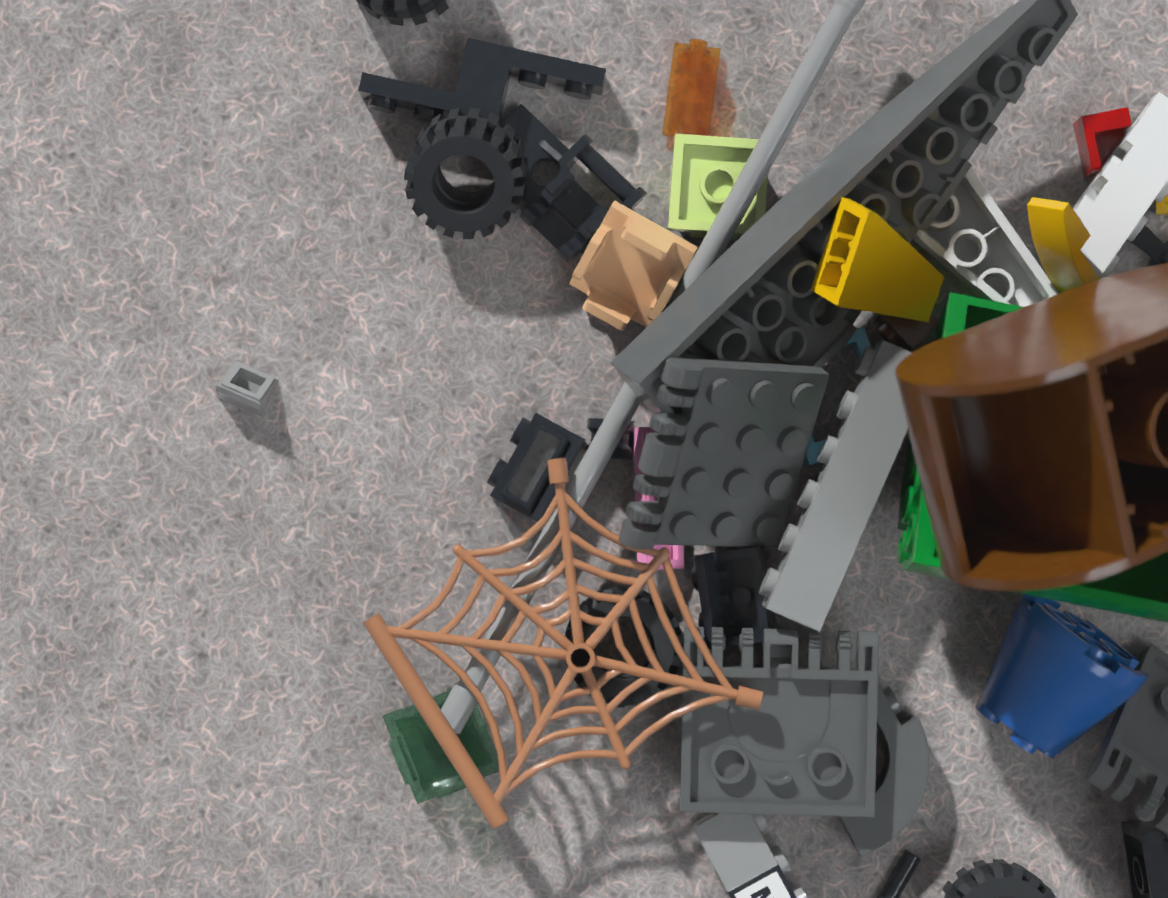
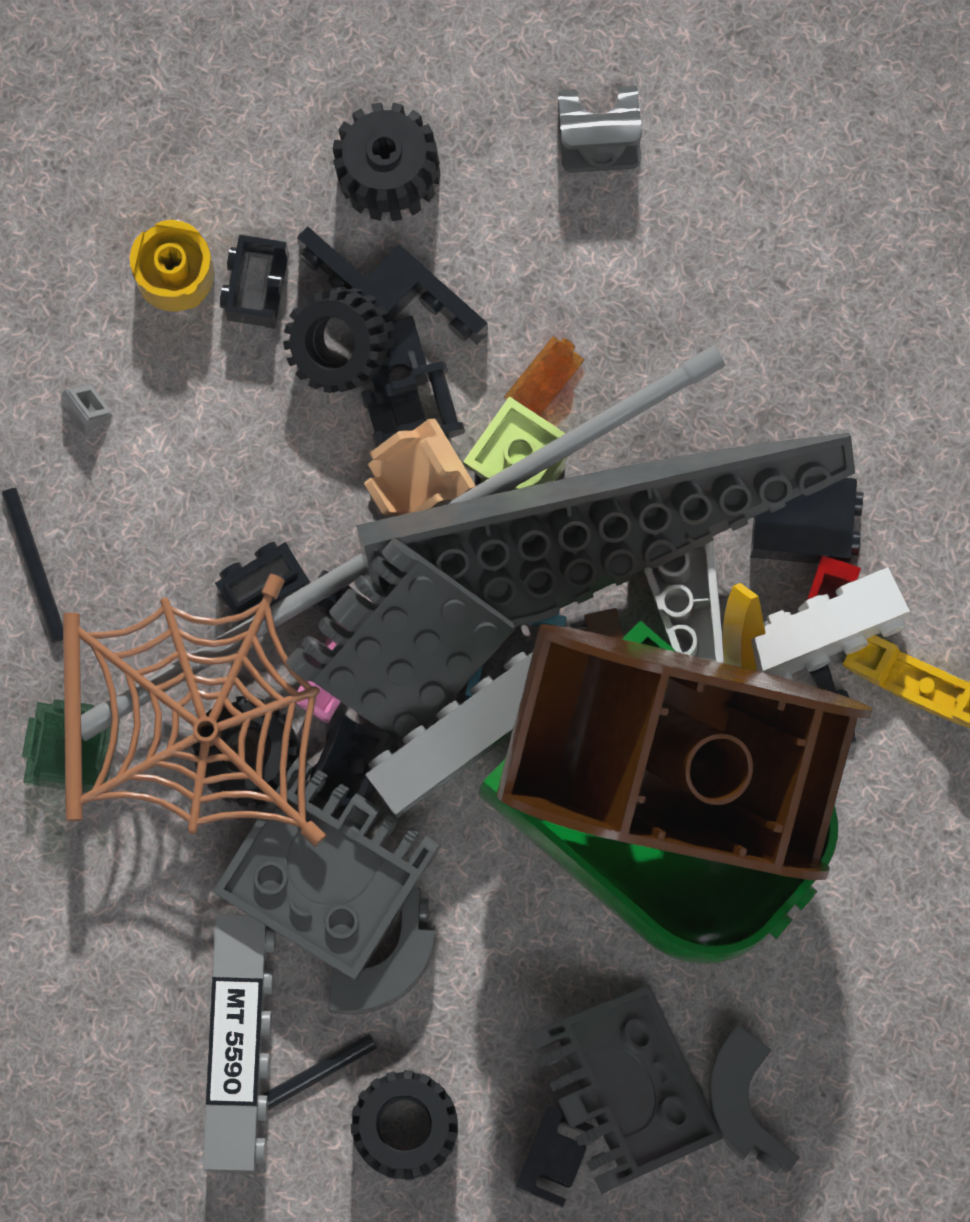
camera: 30 degrees right, 10 degrees down
(224, 181) = (161, 247): none -> yellow brick
(292, 578) = (33, 564): none -> black bar
(340, 158) = (255, 281): none -> black window
(874, 267) = (592, 569): yellow slope -> none
(1054, 94) = (811, 526): none -> black brick
(1055, 677) = (555, 956): blue cone -> none

